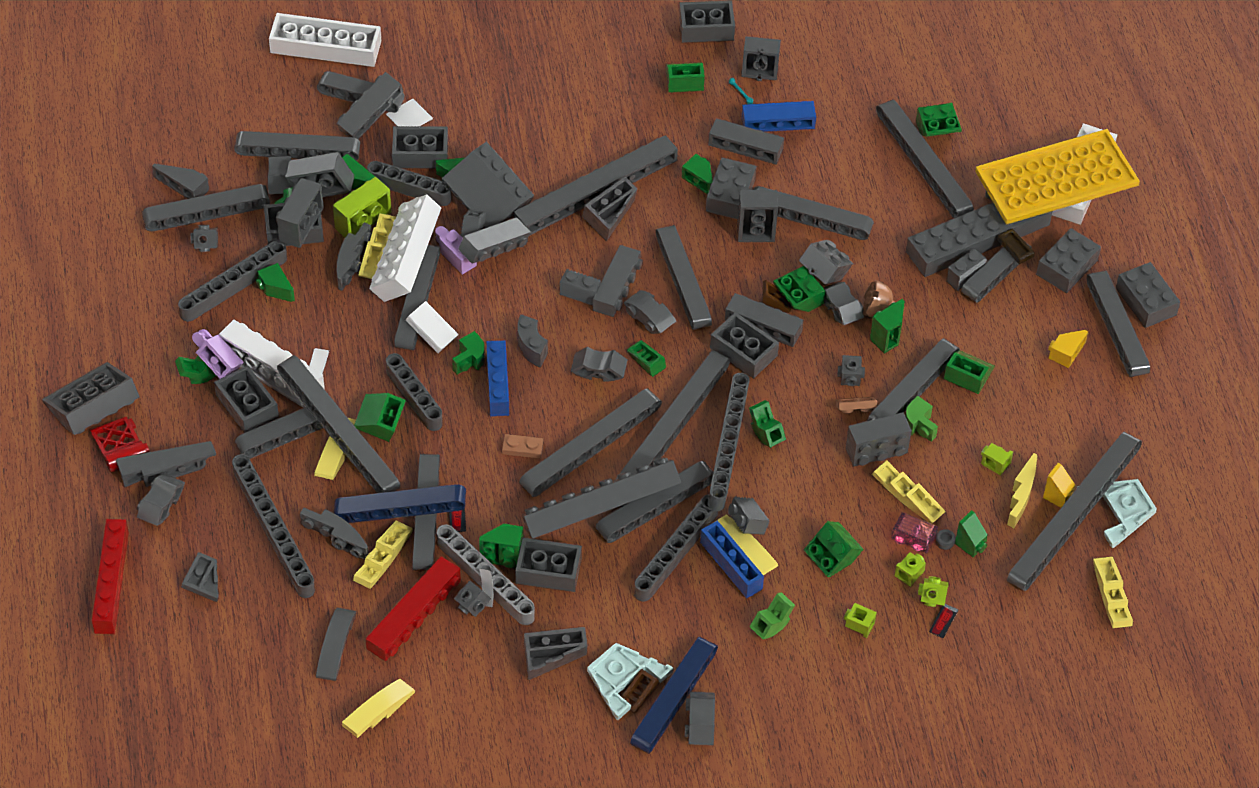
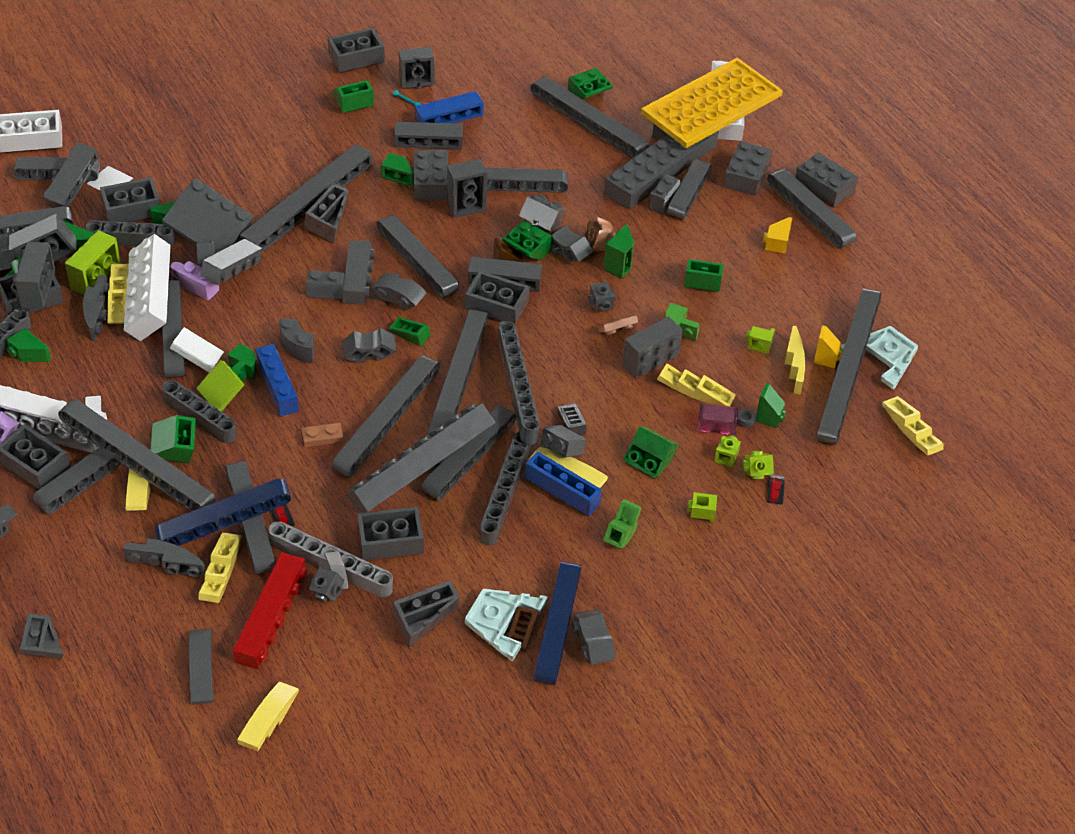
camera: 20 degrees left, 5 degrees down
(260, 501) = (99, 569): dark grey beam -> none
(441, 371) = (220, 386): none -> lime tile
(502, 545) = (340, 526): green slope -> none
(765, 426) = (543, 362): green brick -> none
(767, 505) = (580, 426): none -> dark grey slope
(916, 381) = (662, 291): dark grey beam -> none
(1015, 246) = (700, 165): dark brown tile -> none

